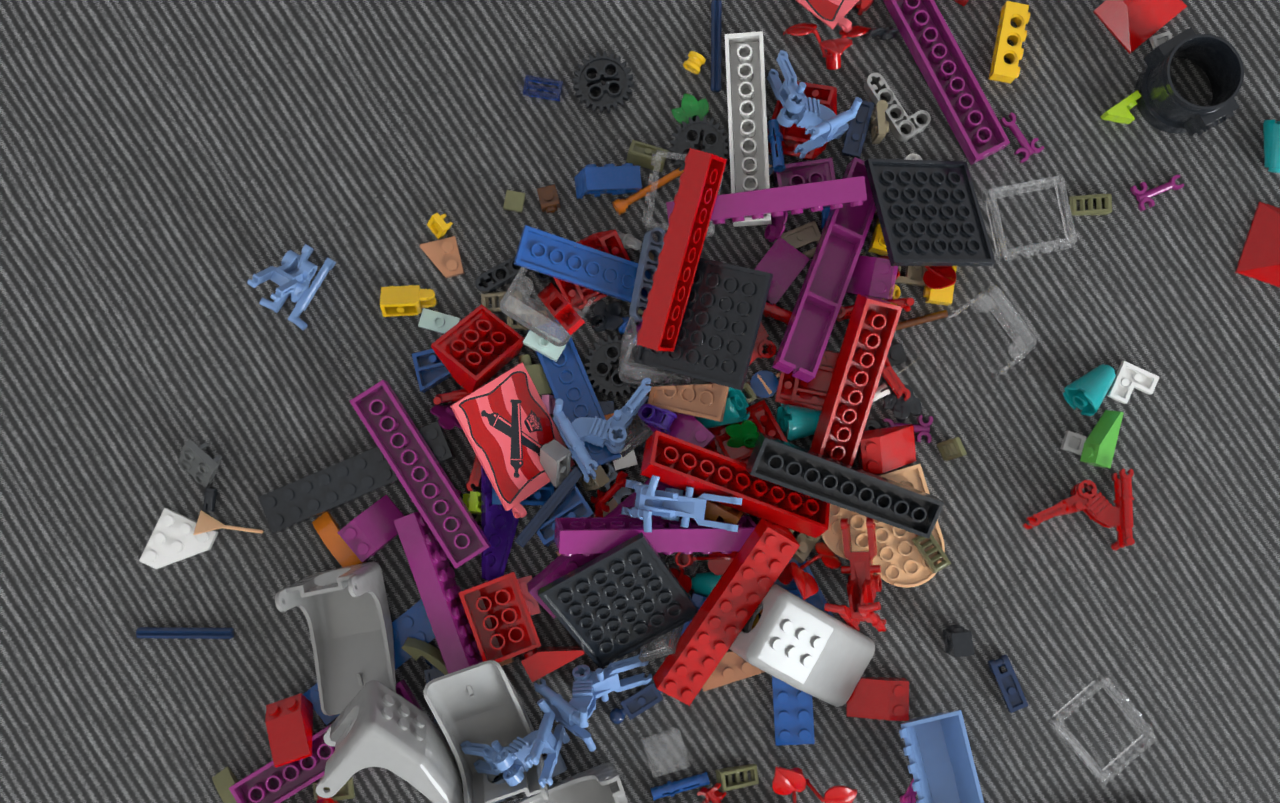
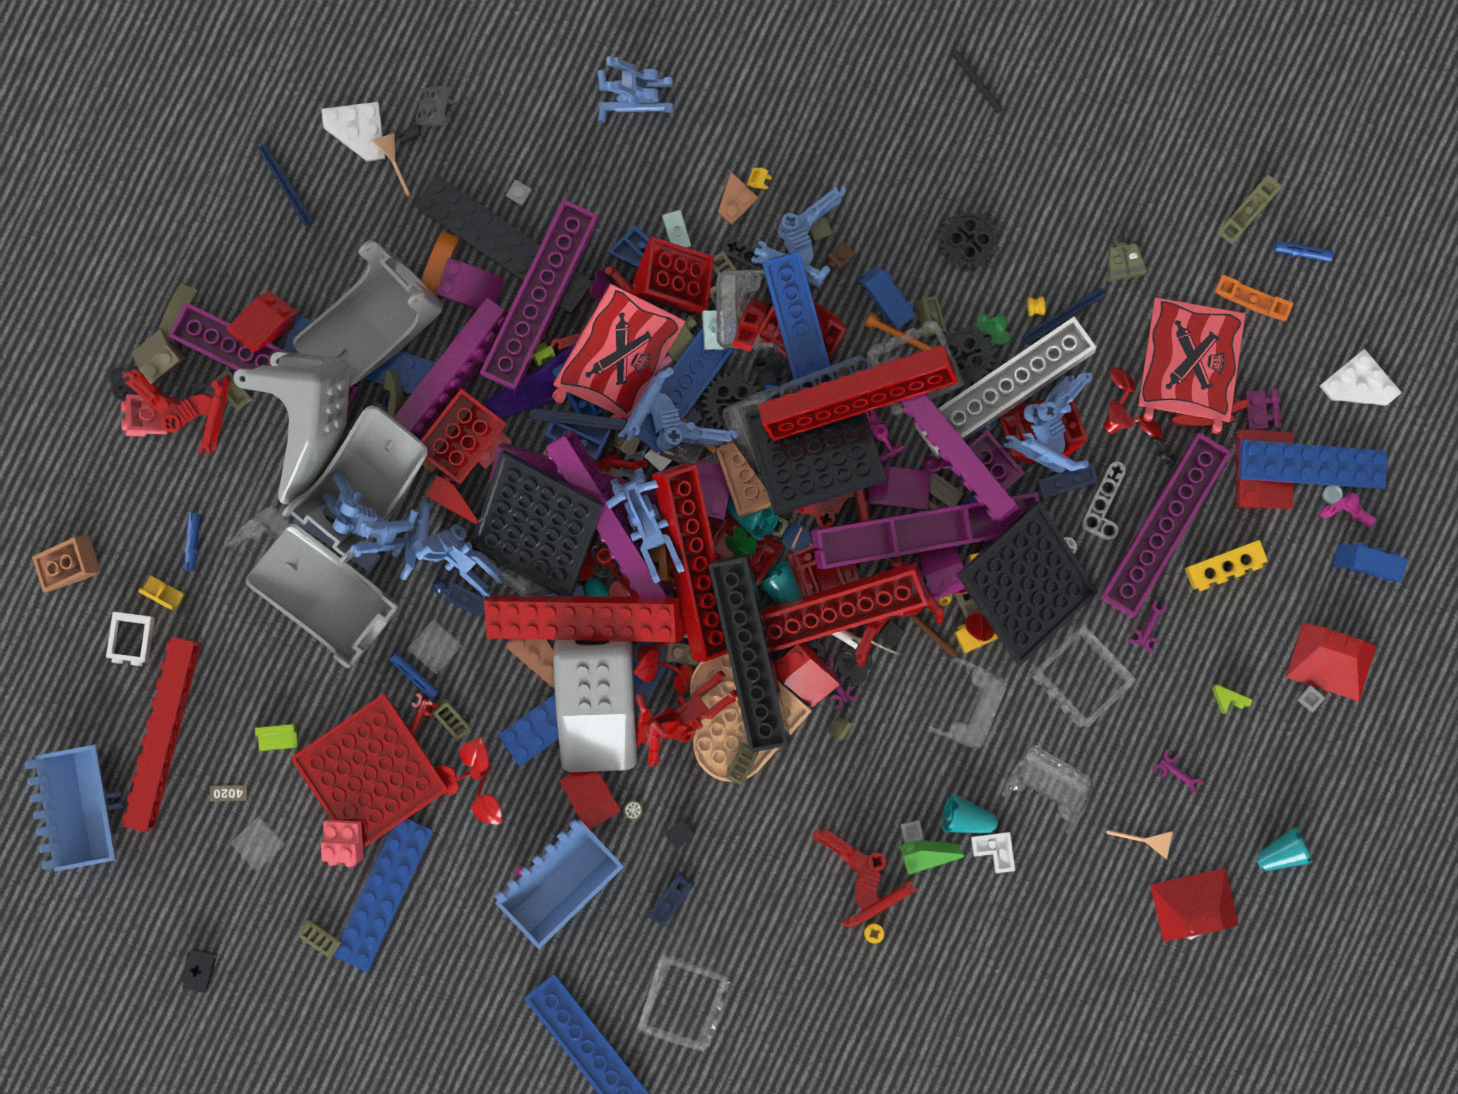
camera: 55 degrees right, 0 degrees up
(321, 436) = (518, 193): none -> light grey plate
(405, 300) = (677, 191): yellow hinge -> none
(511, 222) = (797, 236): none -> medium blue piece
(542, 88) = (938, 206): clear blue tile -> none
(555, 461) = (619, 401): light grey slope -> none
(629, 241) = (845, 346): light grey axle -> none
(660, 418) = (709, 465): dark purple piece -> none
(722, 256) = (881, 433): none -> dark pink pin
(774, 129) = (1011, 416): blue pin -> none
(878, 123) = (1079, 498): dark tan plate -> none
(911, 668) = (633, 810): none -> olive tile
(1105, 294) = (1054, 780): none -> clear windscreen
(1106, 199) = (1132, 738): olive slope -> none
(1136, 530) = (874, 930): none -> yellow wheel
(1161, 102) = (1245, 741): black cylinder -> none
(1205, 243) = (1159, 843): none -> light nougat piece

